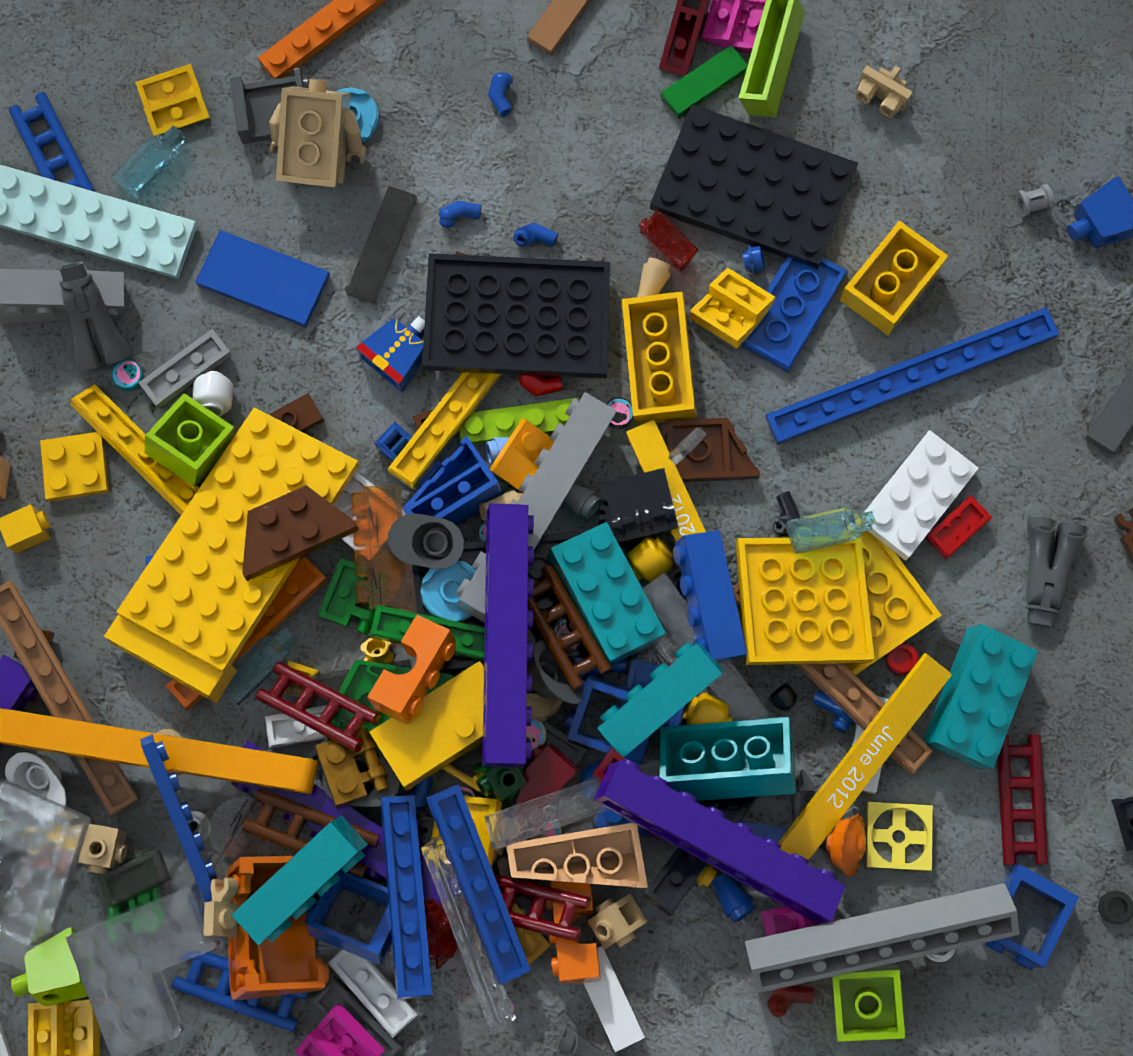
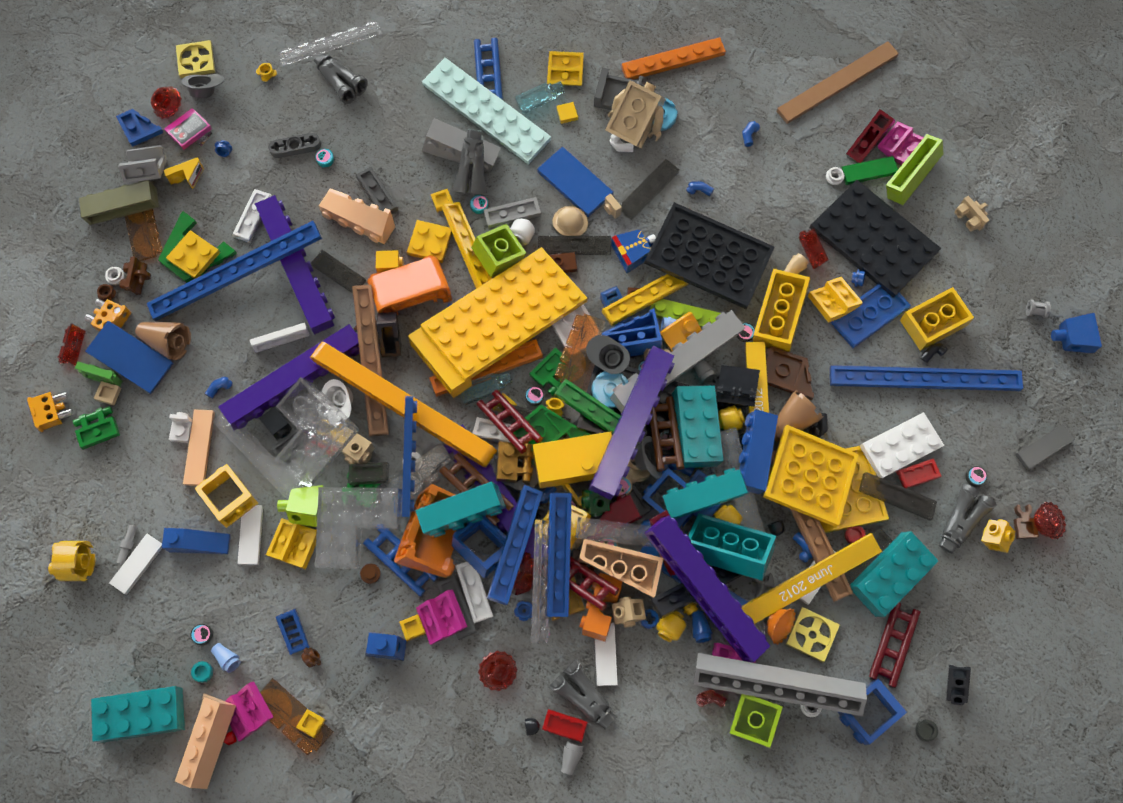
camera: 20 degrees right, 5 degrees down
(64, 389) = (440, 198): none -> yellow tile
(72, 555) = (409, 285): none -> windscreen
(73, 645) = (389, 334): none -> black piece
(203, 1030) = (370, 573): none -> reddish brown plate
(204, 171) = (567, 112): none -> yellow tile
(218, 912) = (406, 513): tan plate -> none
(281, 346) = (570, 221): none -> tan hat
(290, 530) = (535, 318): reddish brown wing -> none
(304, 379) = (579, 244): none -> clear smoke tile
(309, 193) = (619, 145): none -> white arm
(337, 296) = (612, 206): none -> tan plate
(339, 646) = (534, 396): none -> tile
(403, 694) = (560, 430): orange arch -> none
(452, 989) = (518, 610): none -> blue plate
(533, 233) = (737, 215): blue arm -> none
(538, 386) = (705, 298): red arm -> none
(647, 926) = (644, 623): none -> blue bush
(656, 103) = (835, 171): none -> white plate
(687, 445) = (778, 363): clear tile -> none
(690, 917) = (671, 627): none -> yellow head
(745, 514) = (797, 413): none -> medium nougat cone
(827, 529) = (841, 440): clear light blue hinge -> none
(905, 328) = (932, 350): none -> black arm
(941, 575) = (897, 496): none -> clear smoke tile
(1042, 495) = (976, 476): none -> tile
(1108, 573) = (998, 535): none -> yellow brick

